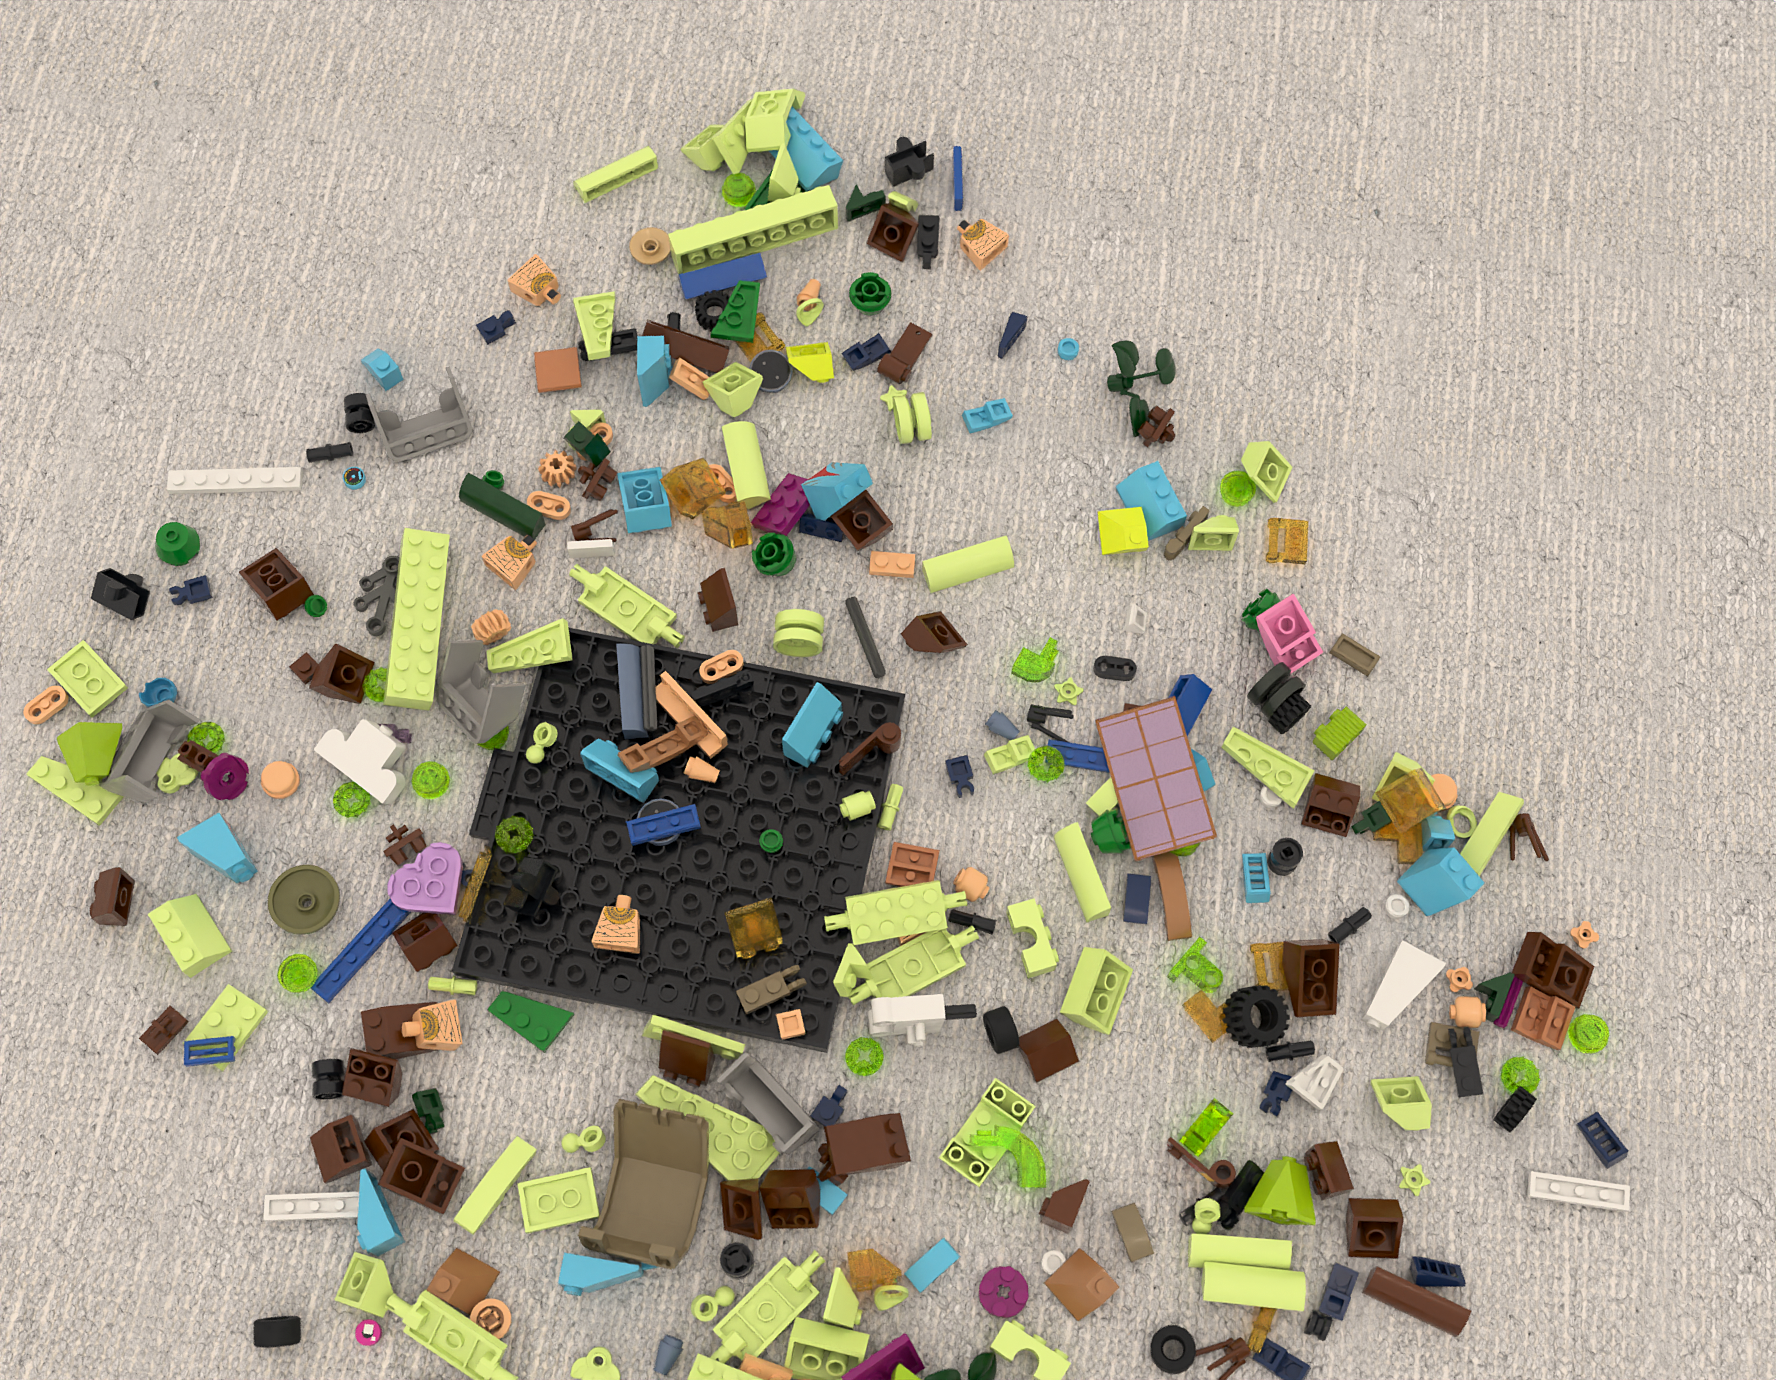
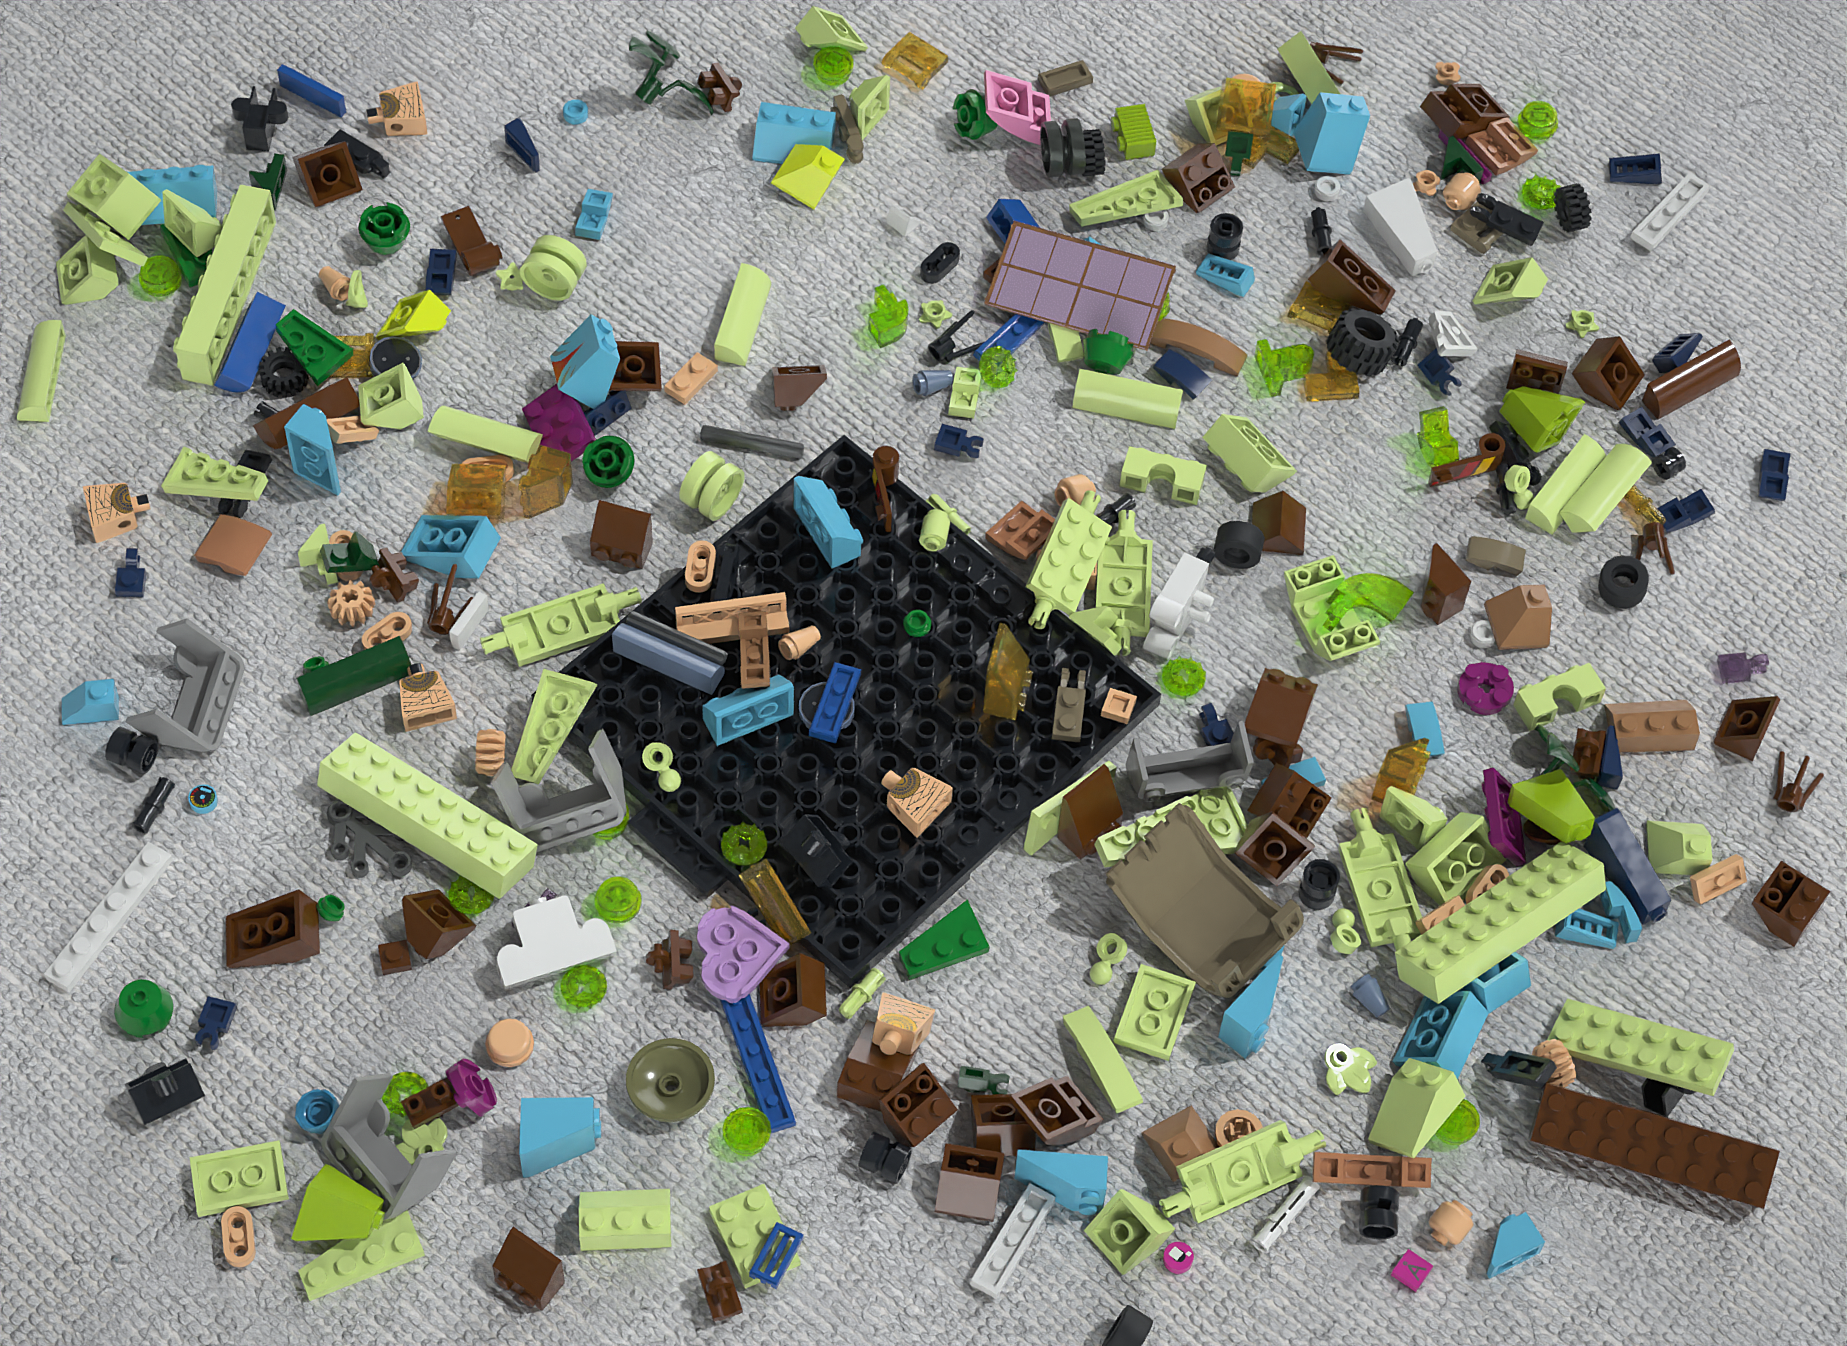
camera: 60 degrees left, 10 degrees down
(650, 239) = (158, 377): tan dish -> none
(885, 1301) = (1435, 784): yellowish green piece -> none
(902, 201) = (302, 144): yellowish green slope -> none

